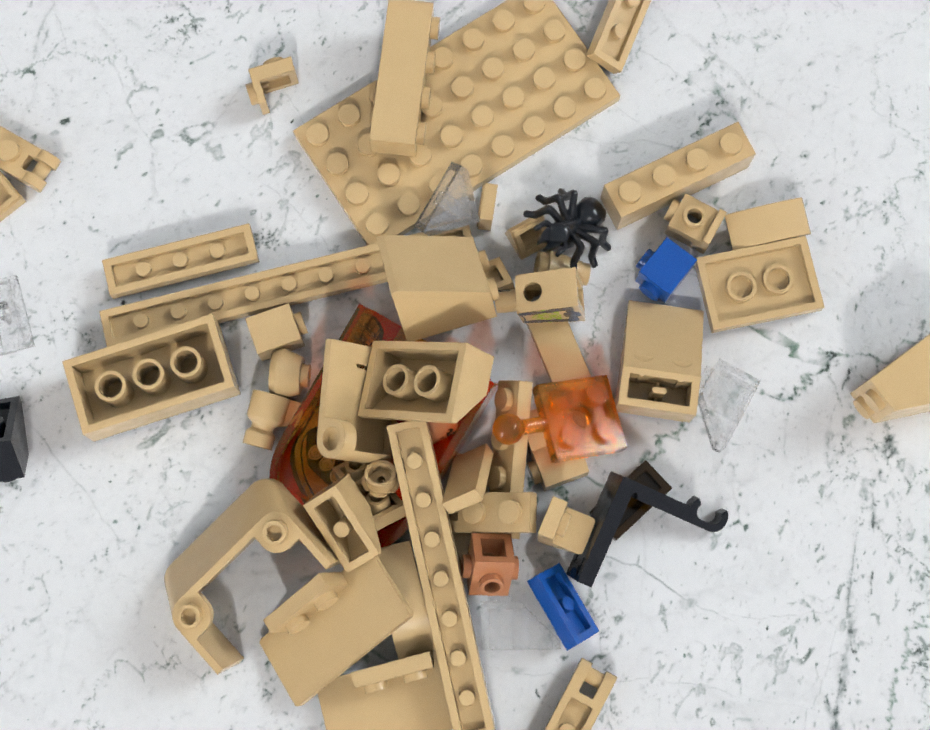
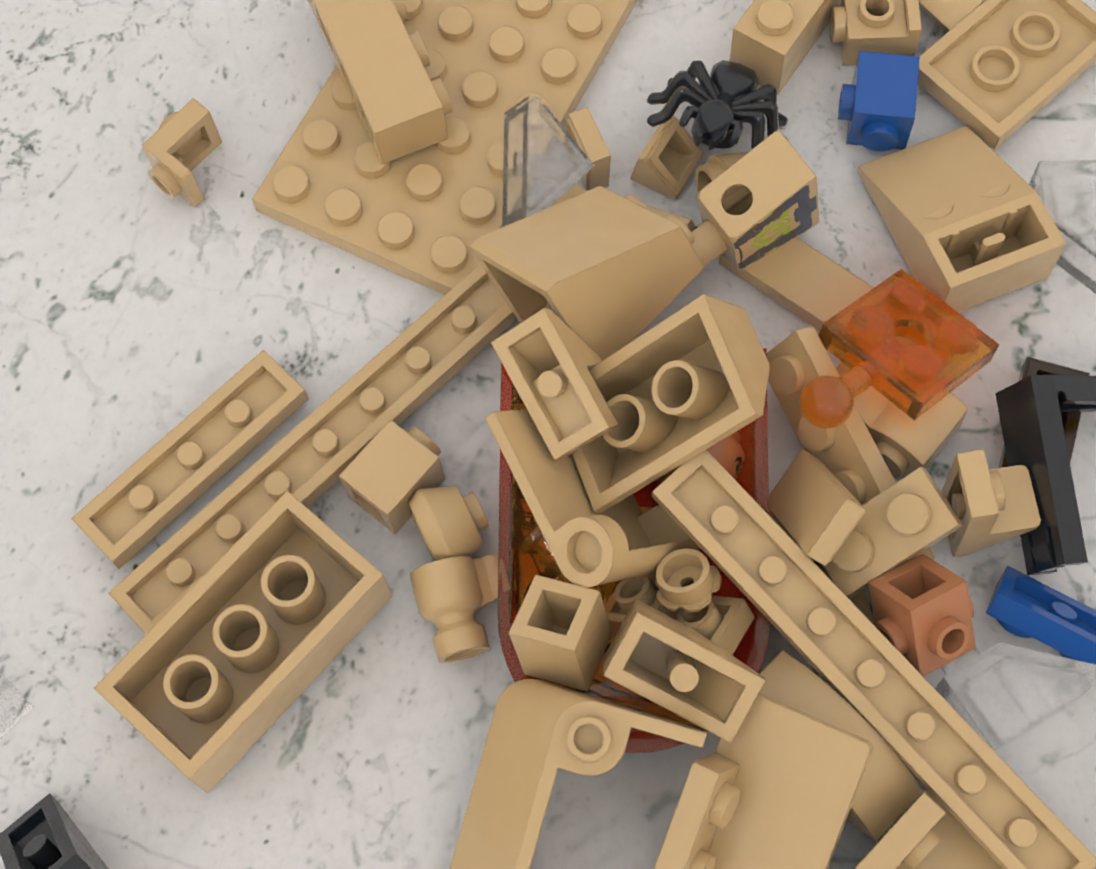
camera: 25 degrees left, 10 degrees down
(301, 469) = (561, 632): none -> tan brick
(372, 337) = (554, 381): none -> tan slope

